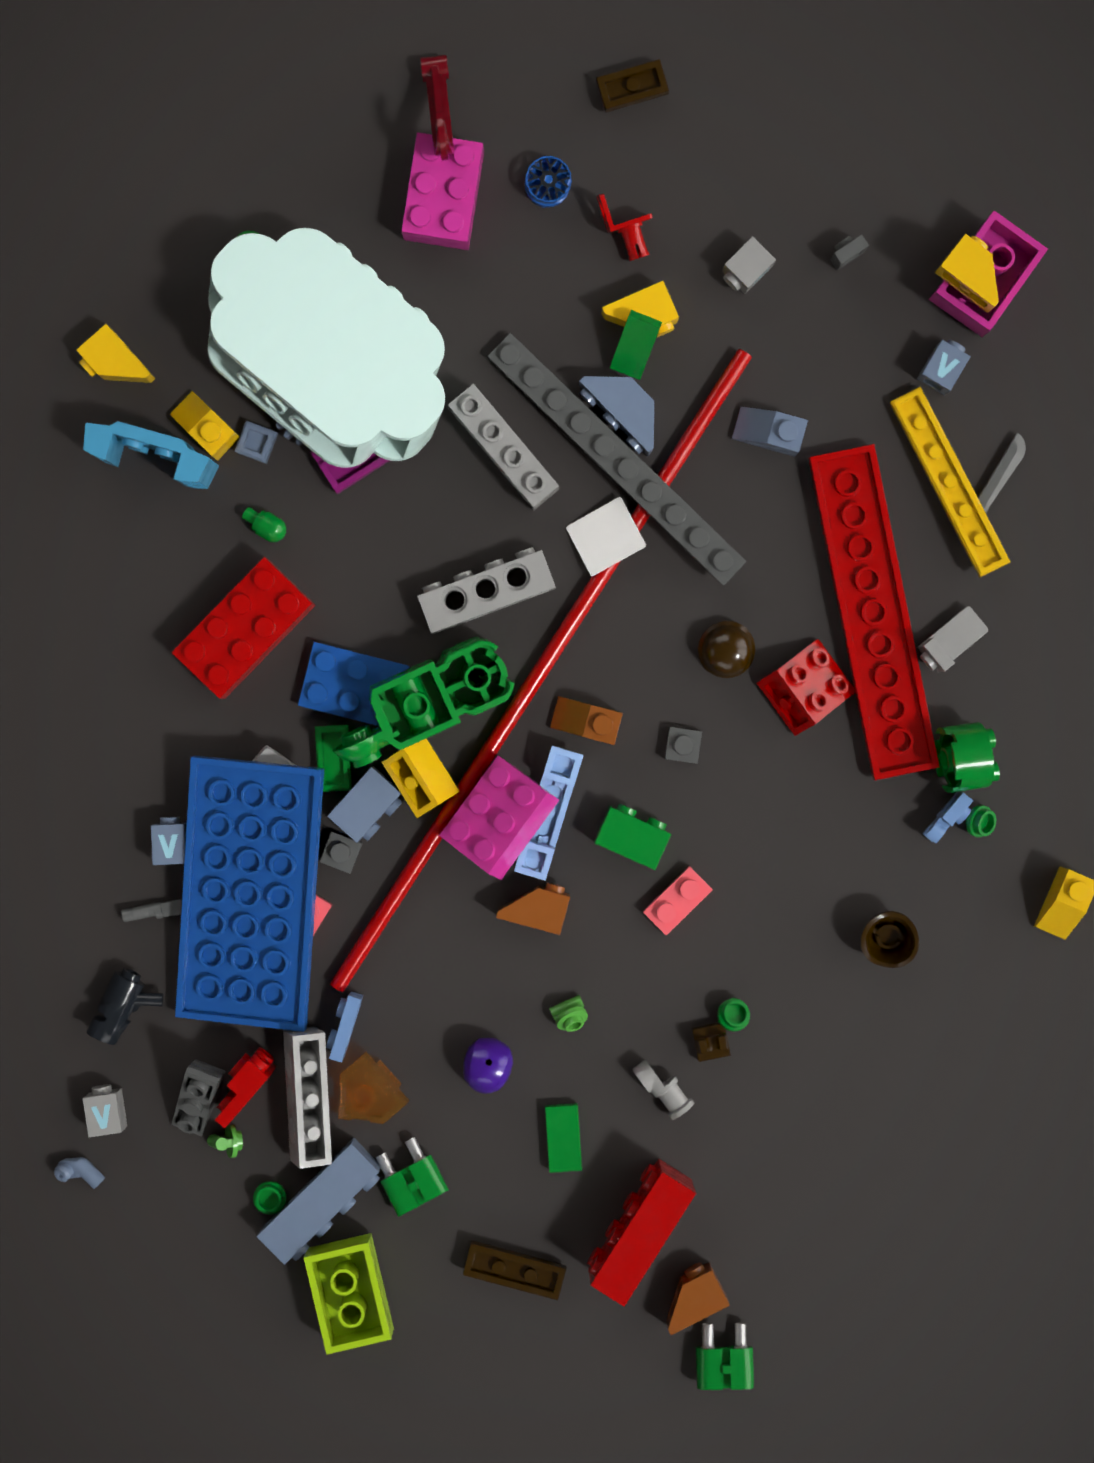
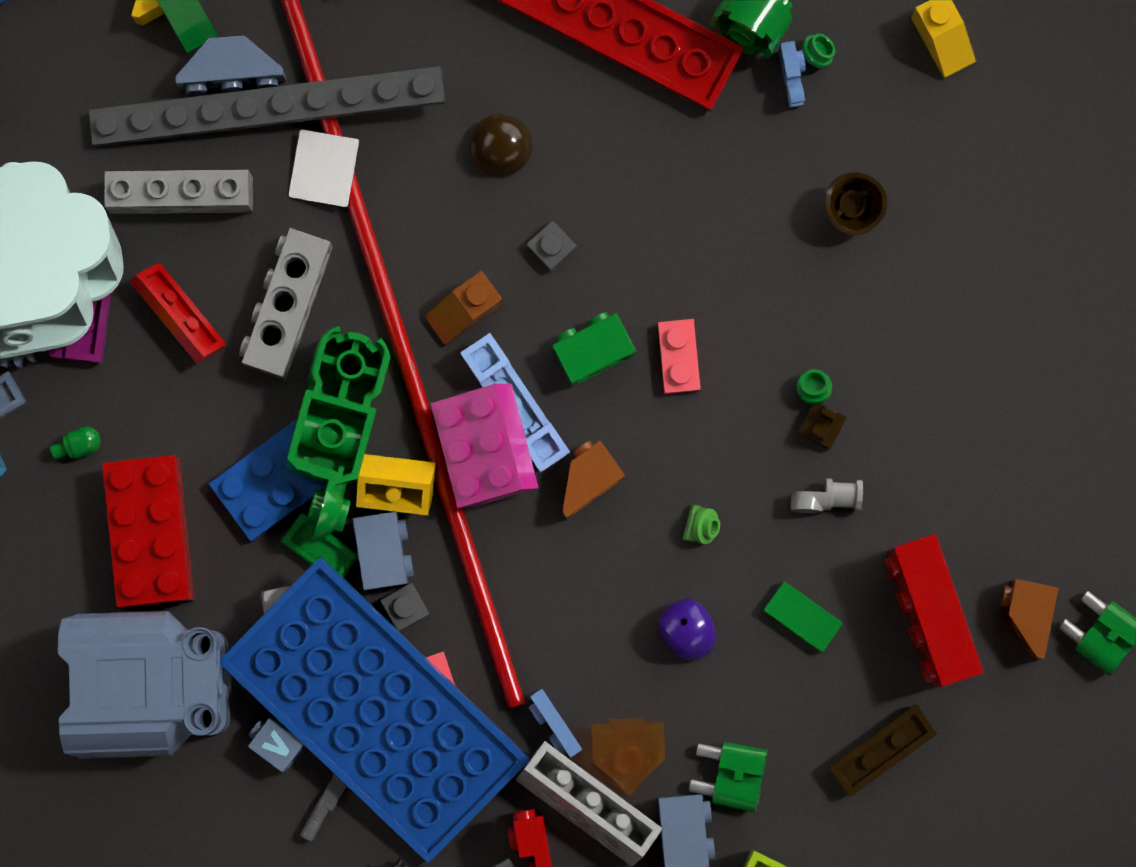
camera: 50 degrees left, 5 degrees down
(130, 716) = (140, 684): none -> sand blue piece
(416, 519) = (178, 313): none -> red plate
(806, 687) = (587, 105): red bracket -> none

